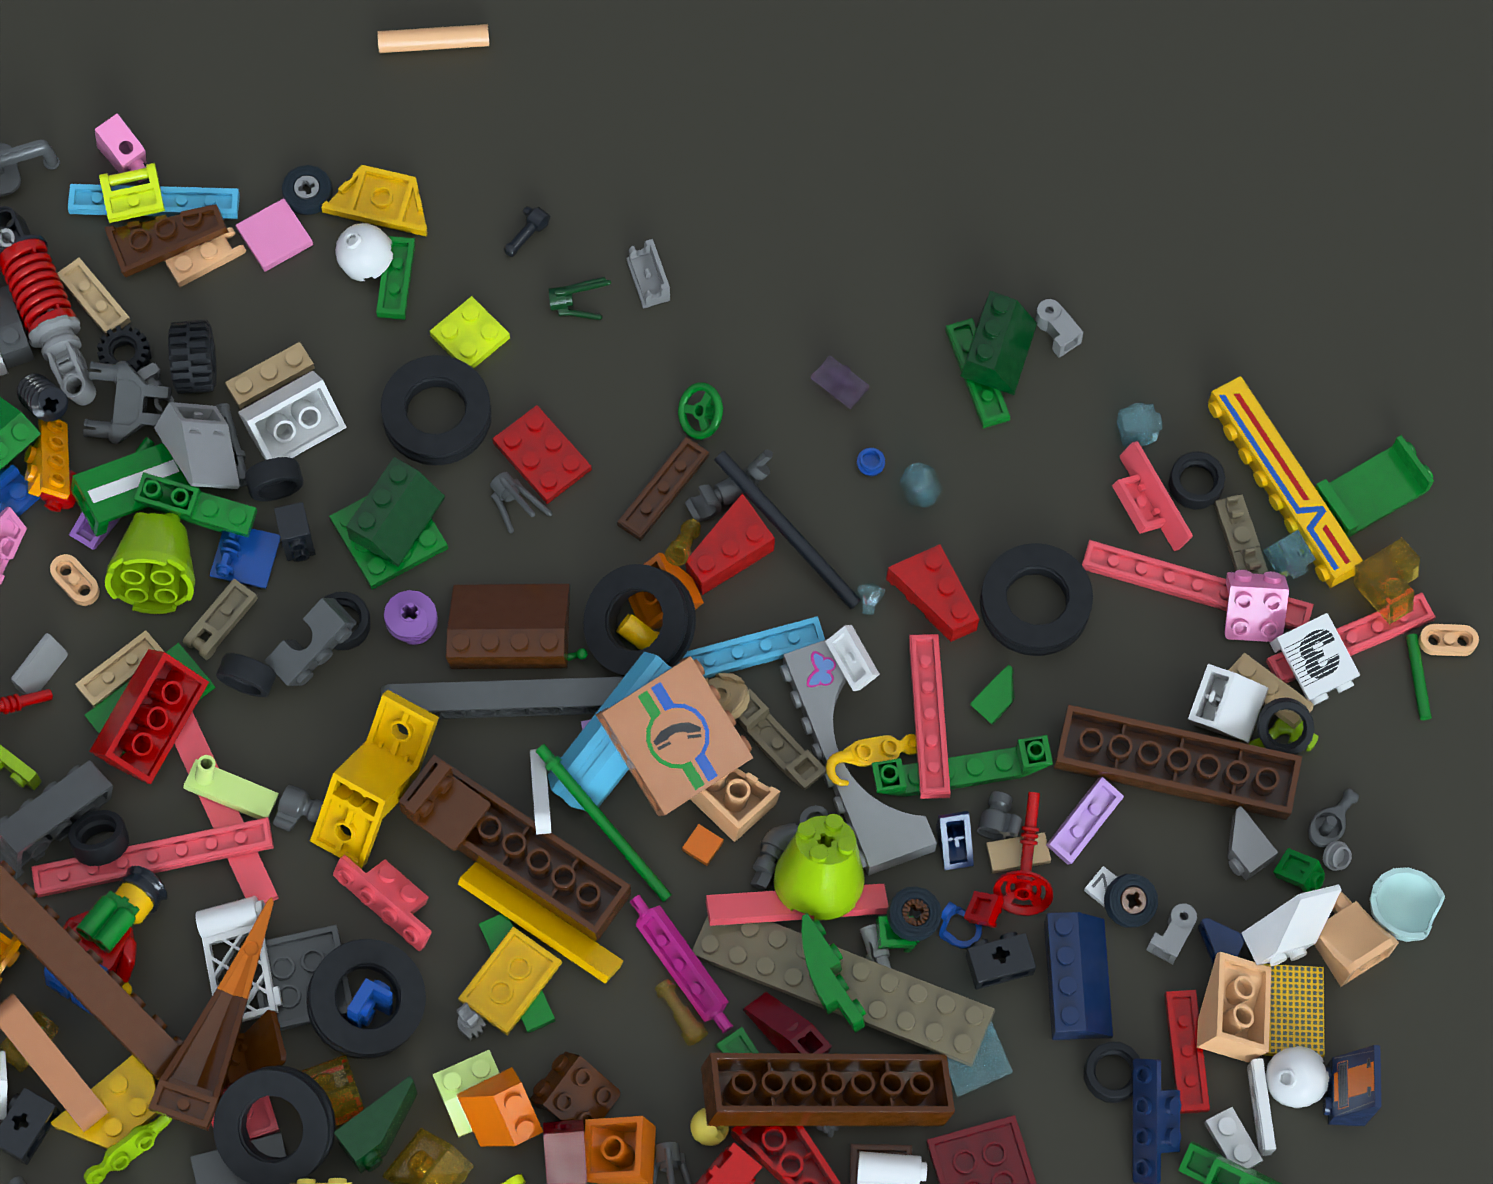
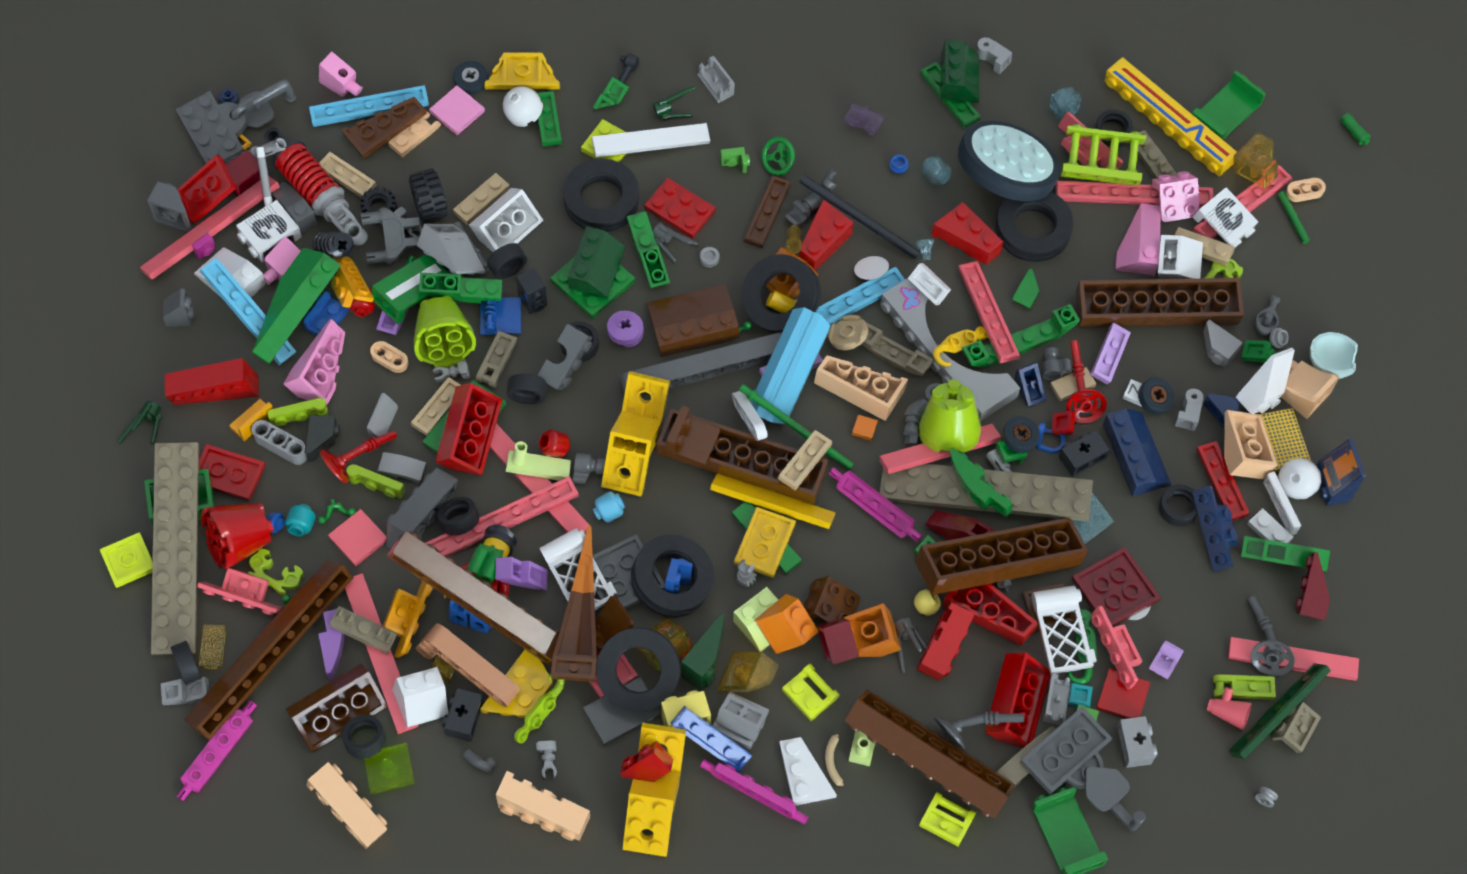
camera: 15 degrees left, 5 degrees down
(45, 745) = (401, 466): none -> light grey slope
(135, 200) = (357, 106): neon yellow plate -> none
(157, 946) = (521, 573): none -> medium lavender slope
(169, 622) = (453, 371): none -> light grey piece
(261, 764) = (554, 443): none -> red head
(310, 875) = (609, 507): none -> medium azure head
(387, 895) = (665, 509): coral bracket -> none
(476, 508) = (647, 250): none -> green slope
(497, 261) = (612, 94): none -> green slope
(528, 344) = (650, 140): none -> white tile
(561, 537) = (709, 257): none -> light grey tile
(595, 879) = (805, 460): none -> tan plate
(640, 396) = (735, 156): none -> bright green bracket
(675, 736) = (829, 358): nougat panel -> none
(692, 1029) = (896, 545): clear yellow piece -> none
(784, 609) = (871, 267): none -> white sticker
(1023, 498) = (1008, 160): none -> wheel
(1169, 549) = (1111, 173): none -> lime fence
(1179, 666) = (1141, 243): none -> bright pink wedge
(1283, 704) = (1237, 261): black tyre -> none
(1290, 555) = (1189, 159): clear light blue brick -> none

